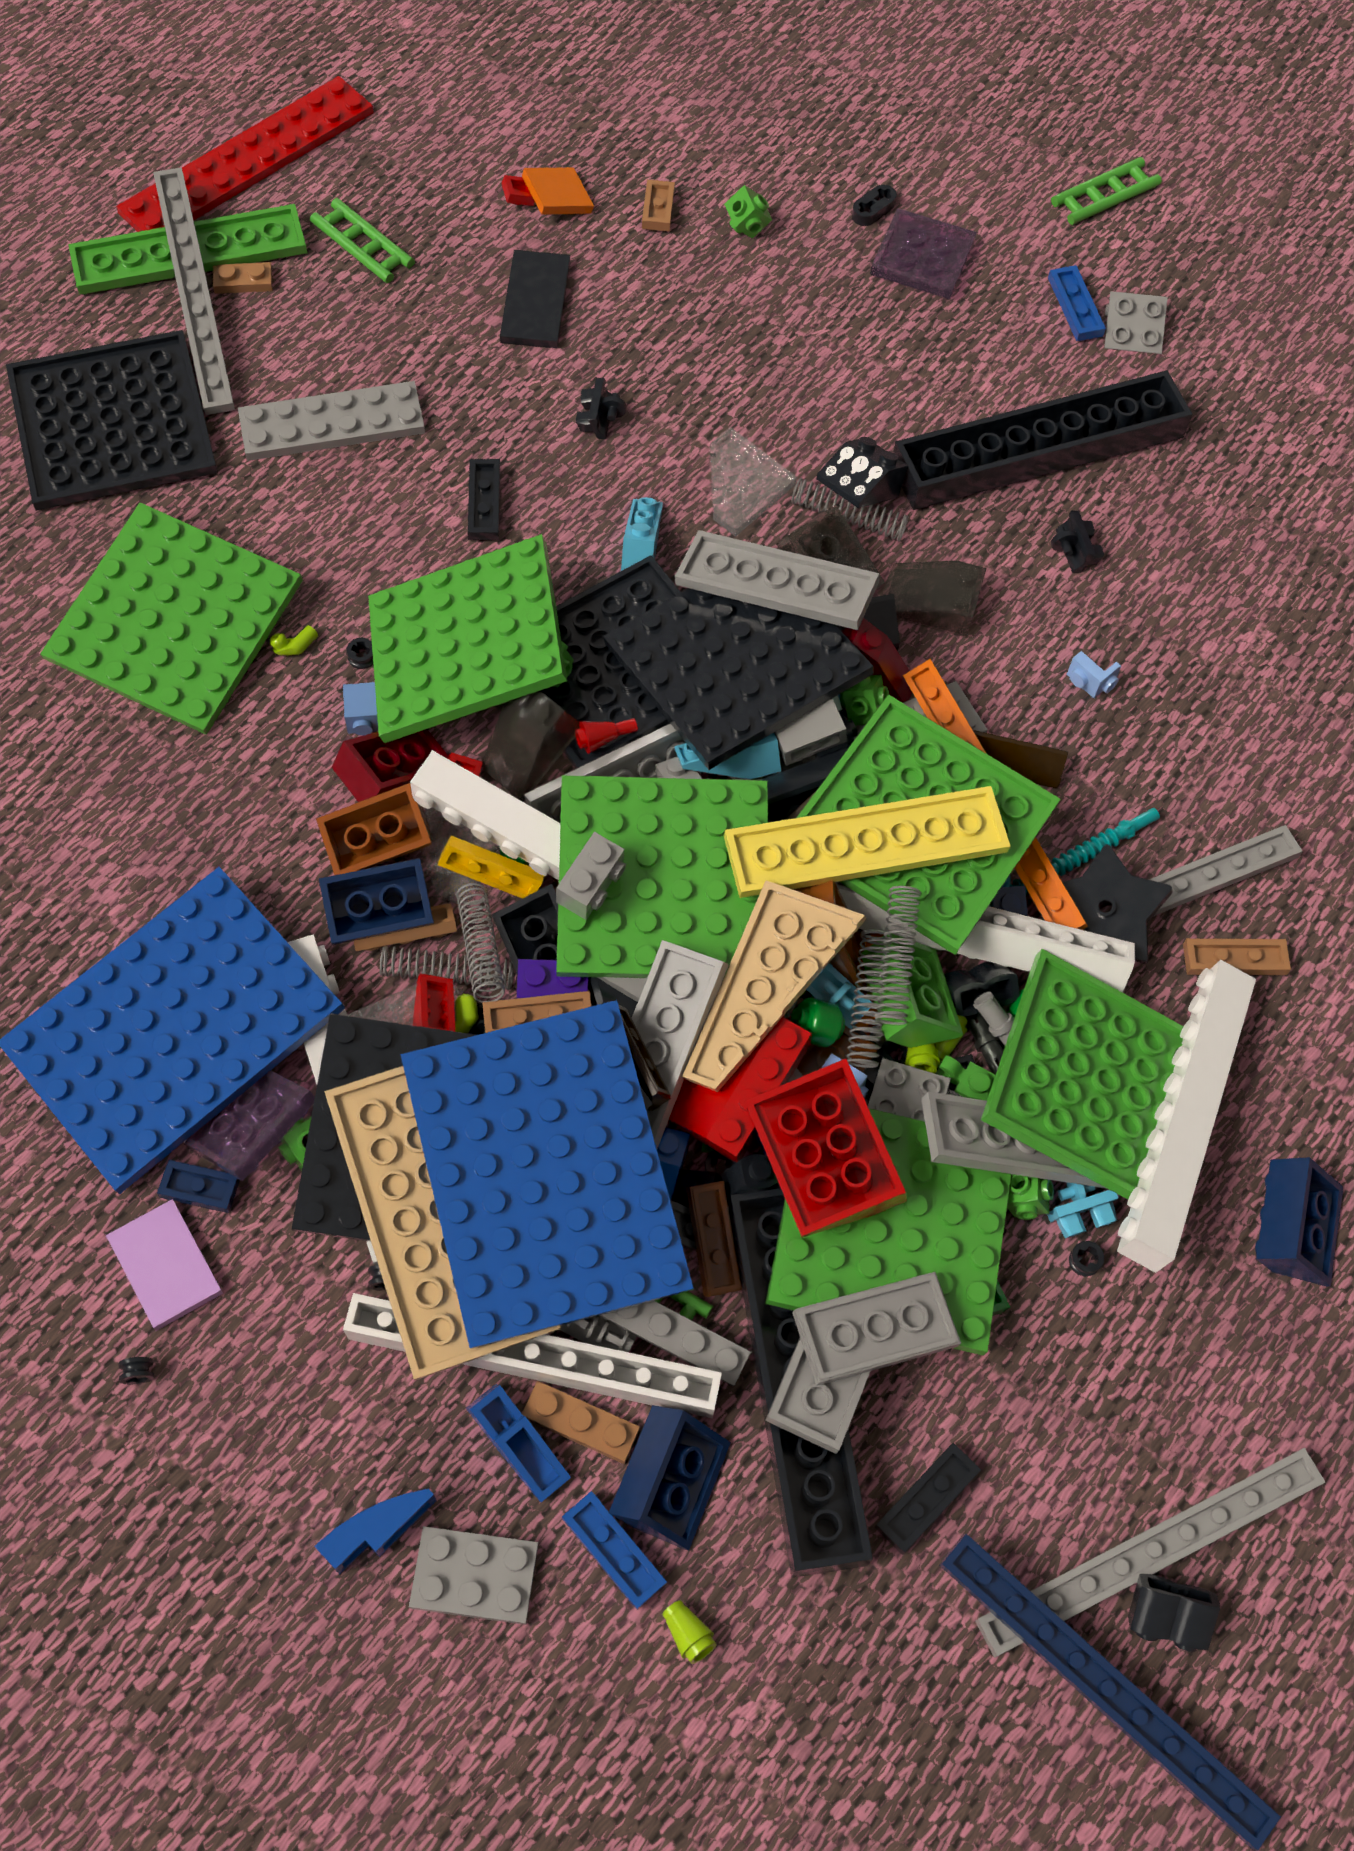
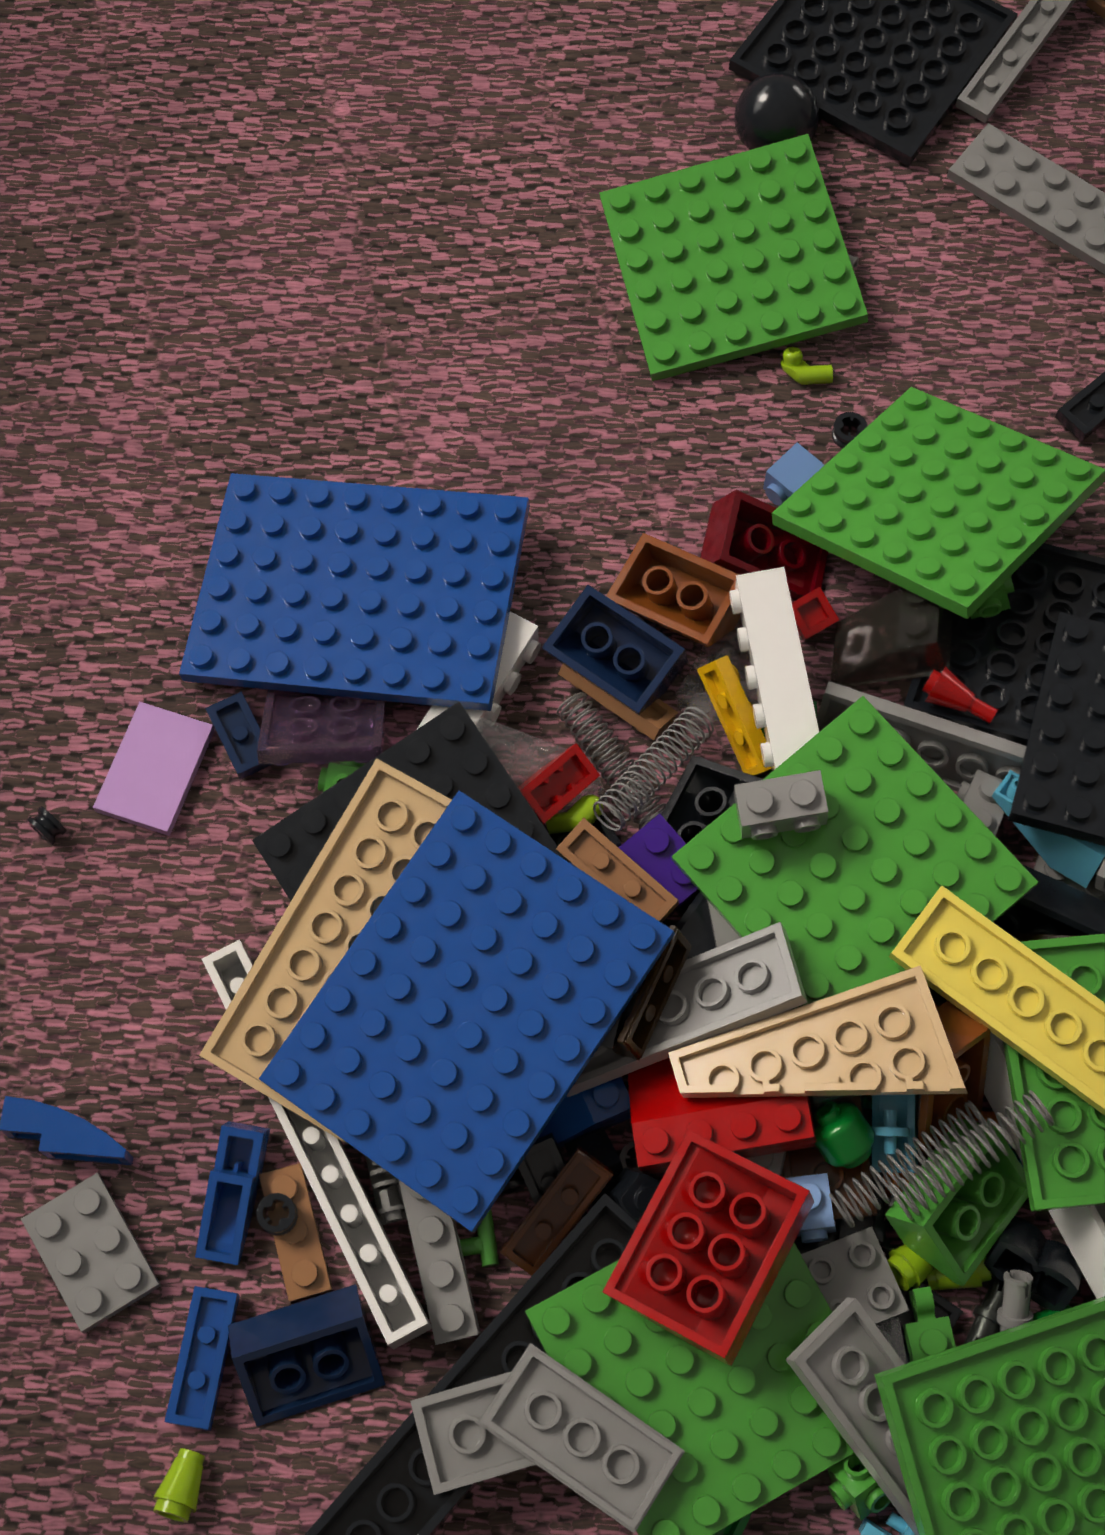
camera: 55 degrees right, 5 degrees up
(98, 509) = (775, 110): none -> black piece
(573, 1419) = (285, 1224): none -> black bush

